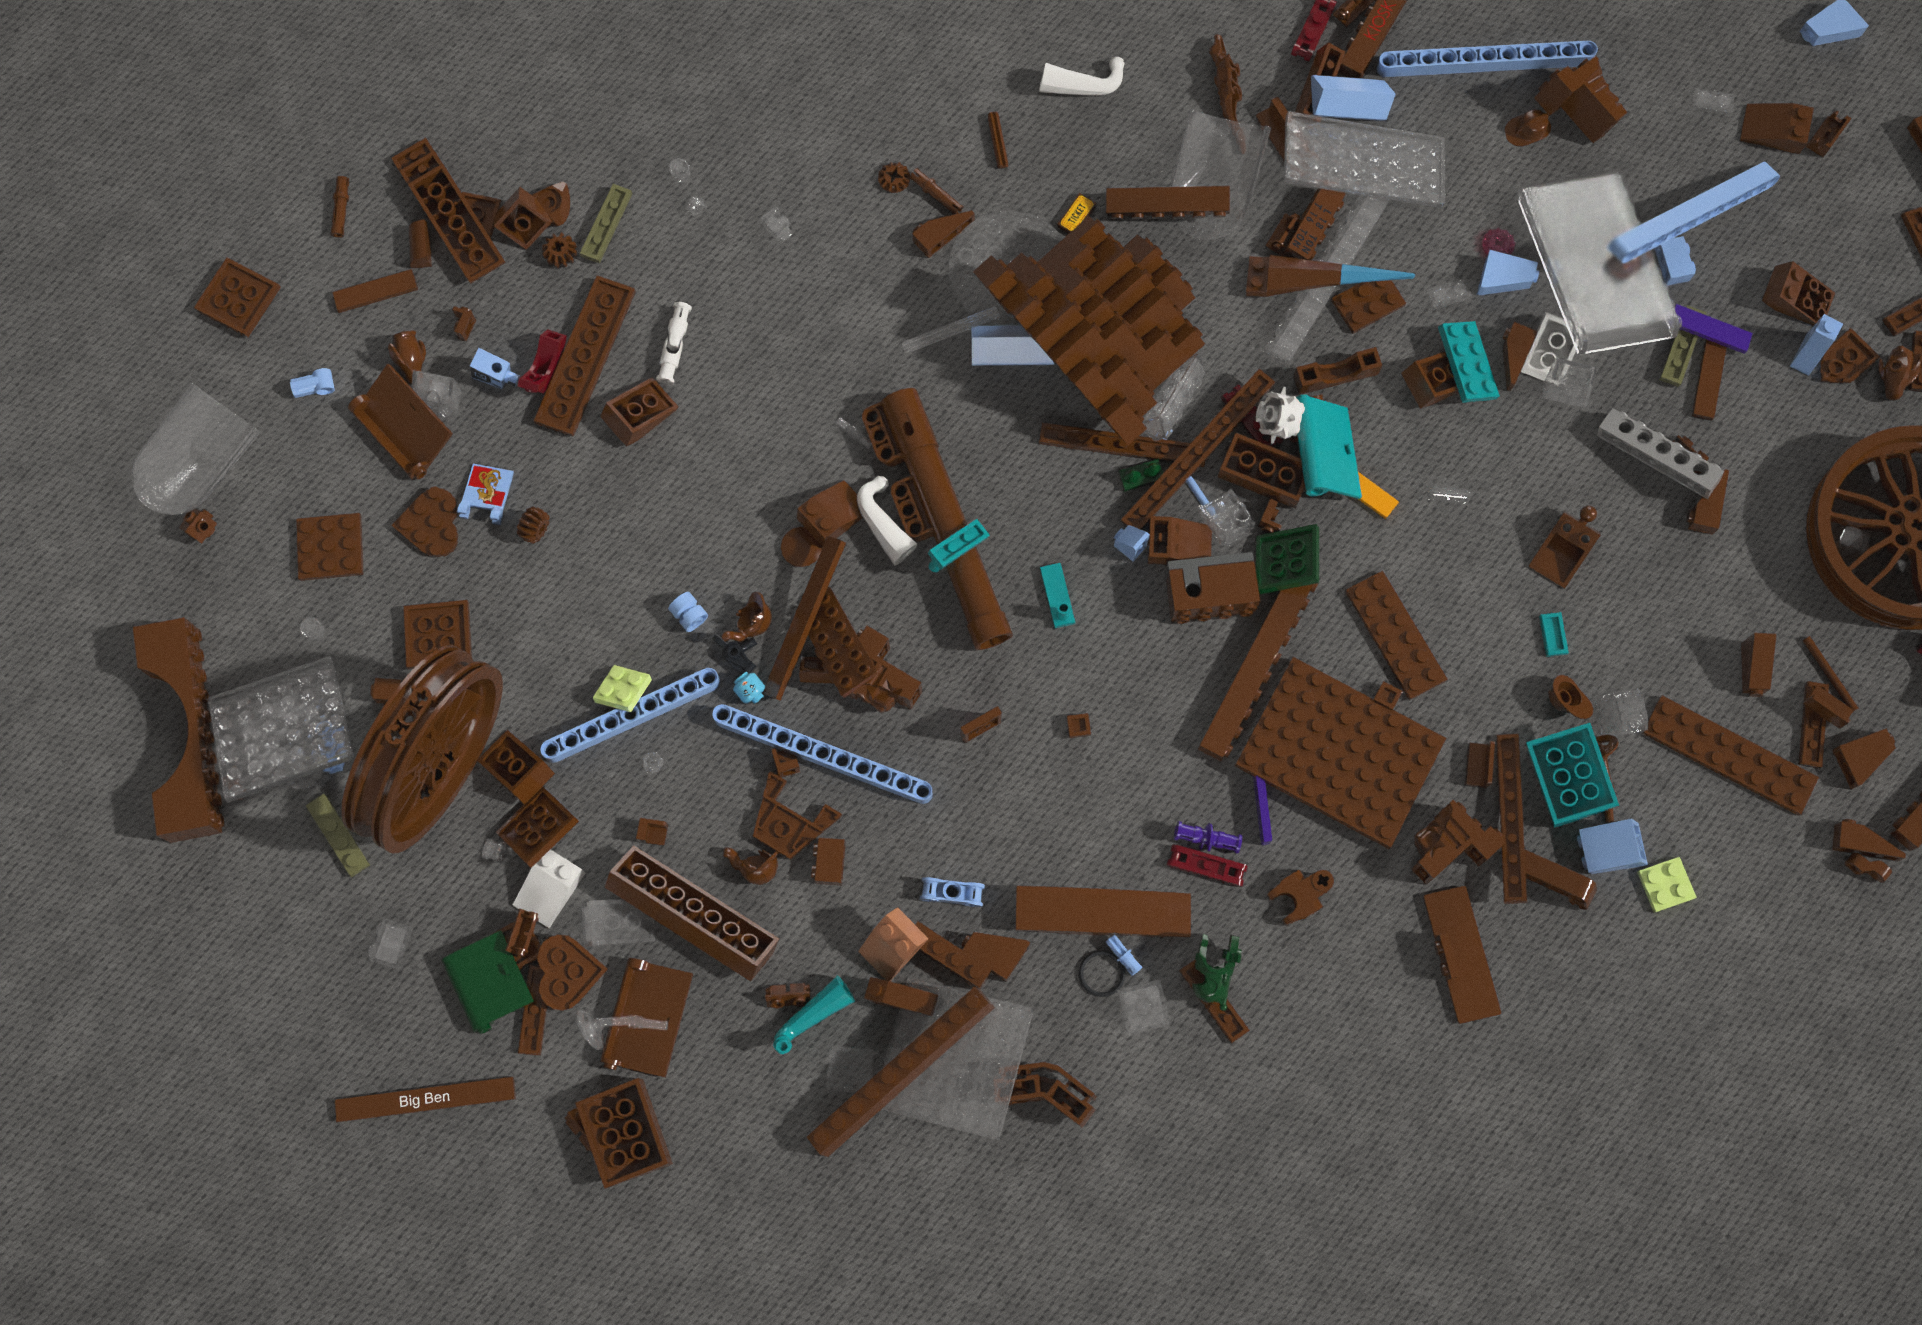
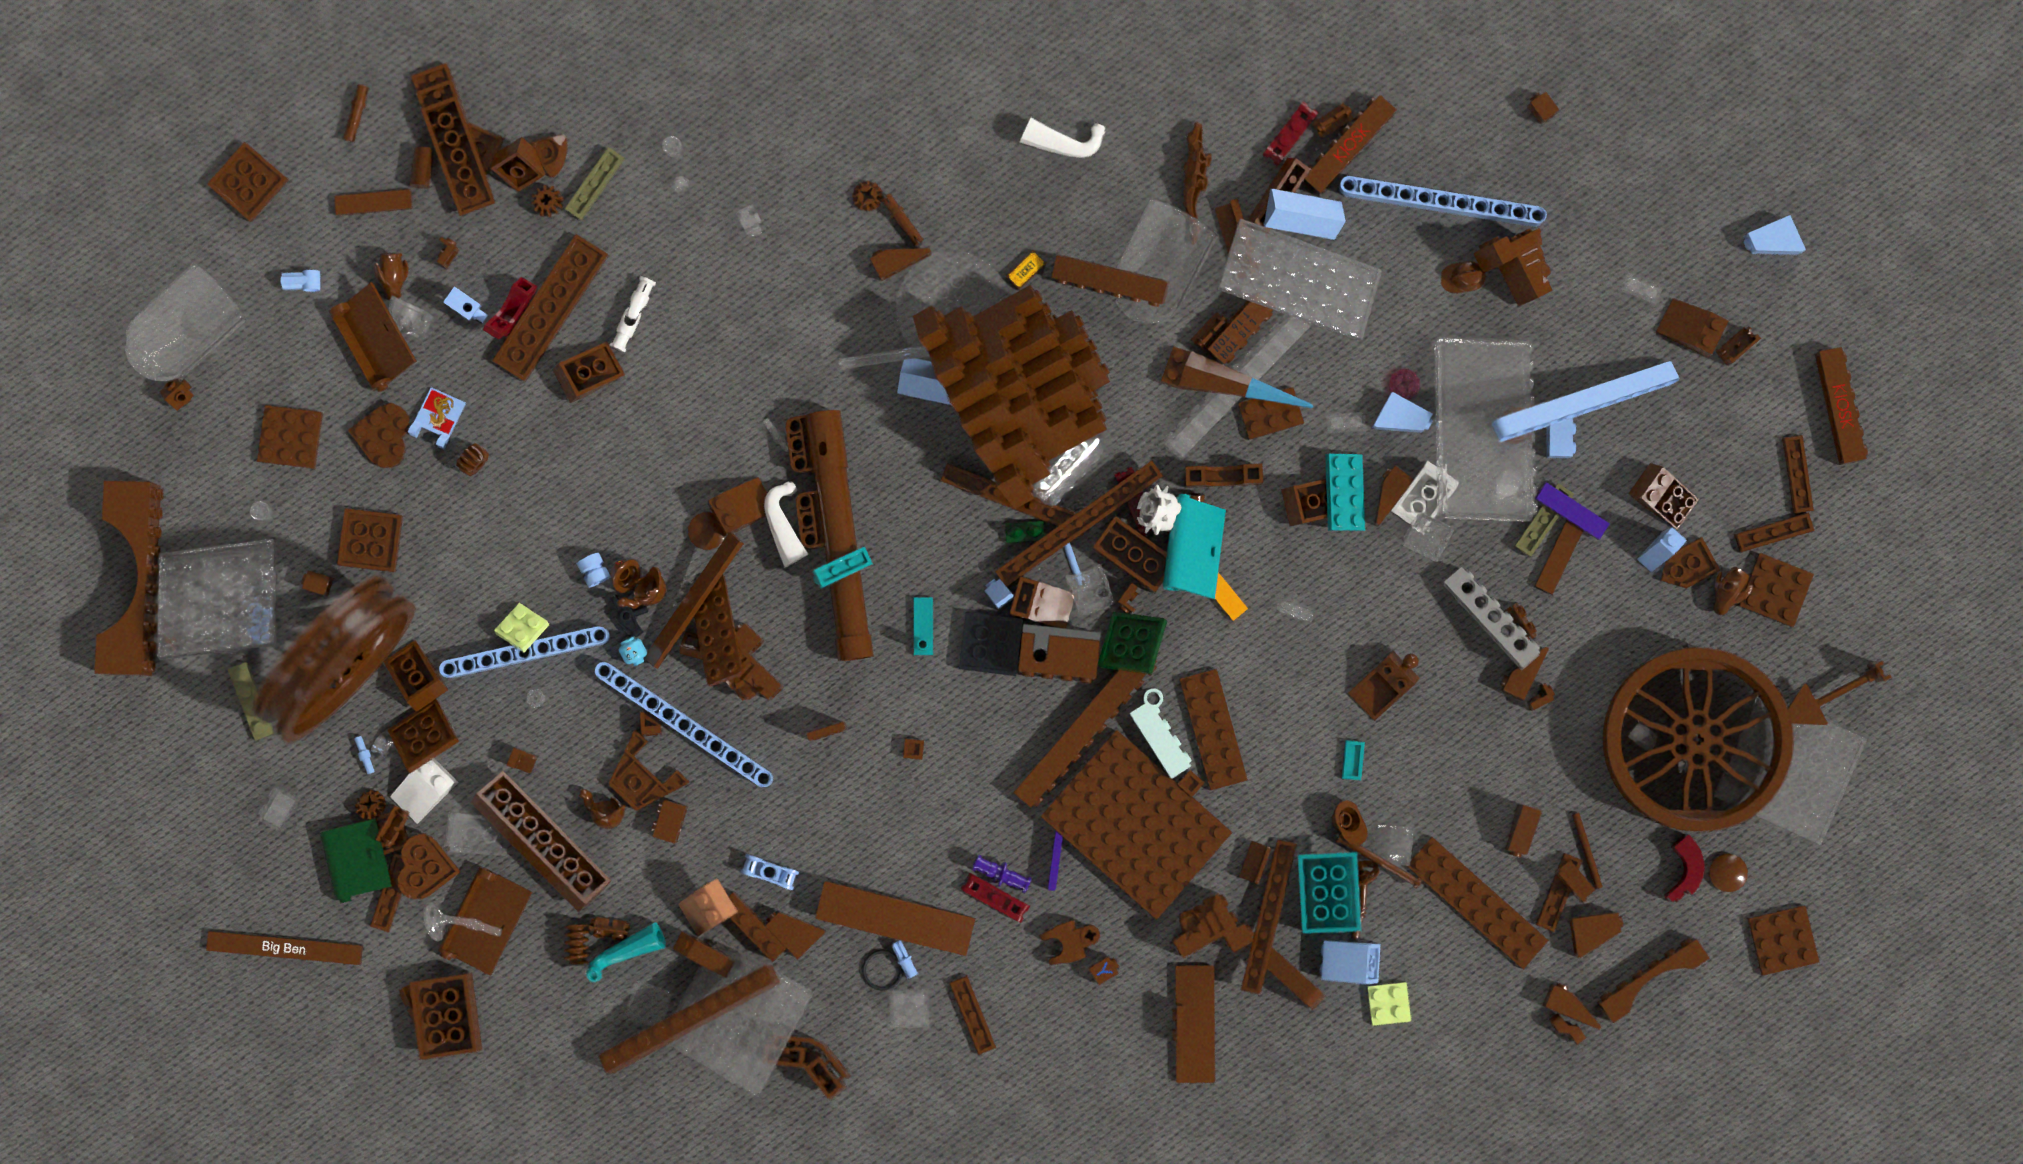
camera: 15 degrees right, 10 degrees up
(475, 865) = (364, 755): none -> light blue bar
(499, 920) = (374, 810): none -> reddish brown gear
(723, 609) = (624, 575): none -> reddish brown hat
(754, 1019) = (576, 944): none -> reddish brown piece
(997, 139) = (970, 189): reddish brown axle -> none
(1134, 597) = (990, 644): none -> black plate
(1217, 978) = (977, 997): dark green helmet -> none
(1339, 653) = (1159, 738): none -> light aqua hinge
(1347, 916) = (1104, 969): none -> reddish brown brick
(1659, 745) = (1382, 862): none -> reddish brown bar
(1738, 523) = (1538, 700): none -> reddish brown bracket

